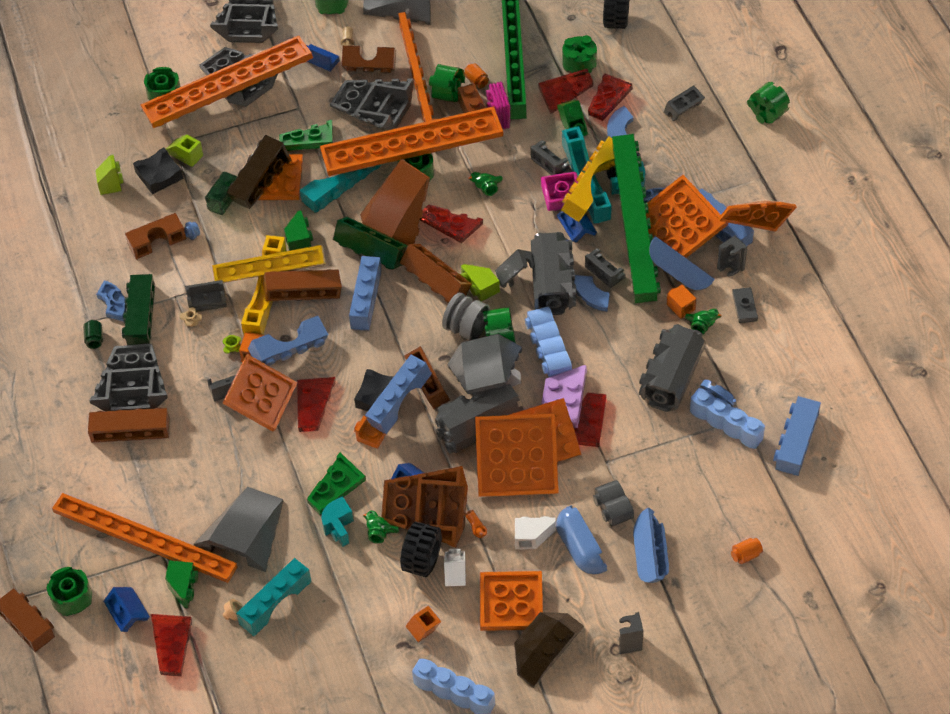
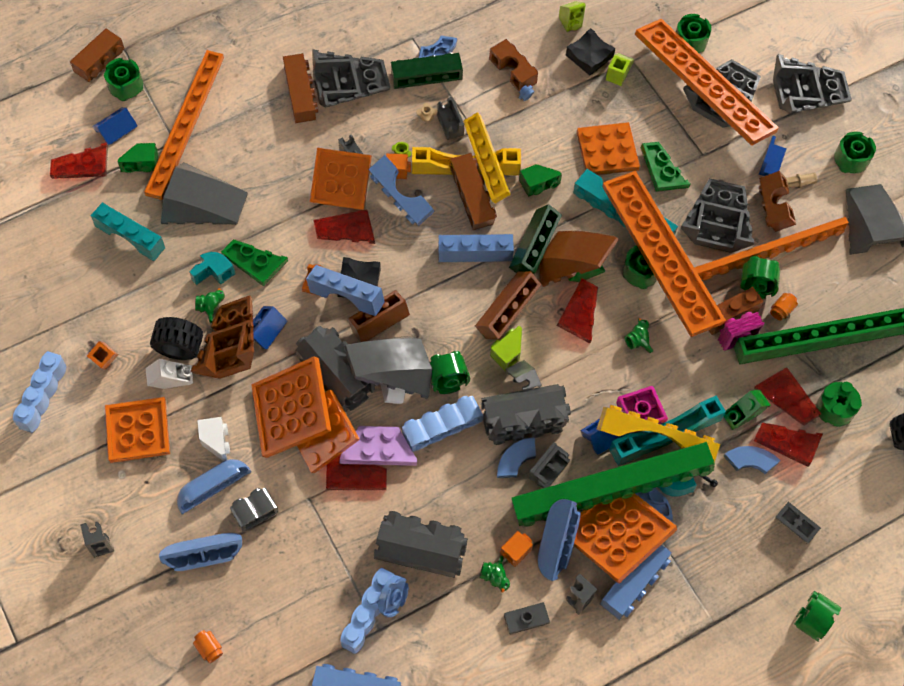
camera: 75 degrees right, 10 degrees up
(93, 334) = (394, 41): dark green brick -> none
(218, 198) = (574, 108): clear green brick -> none
(231, 609) = (115, 202): light nougat tile -> none
(259, 171) = (598, 128): dark brown wedge -> none
(465, 316) = (455, 334): light grey wheel -> none
(478, 528) = (219, 388): orange arm -> none
(543, 644) = (92, 465): dark brown wedge -> none
(548, 160) = (686, 393): dark grey hinge -> none
(759, 214) = (646, 622): orange wedge -> none

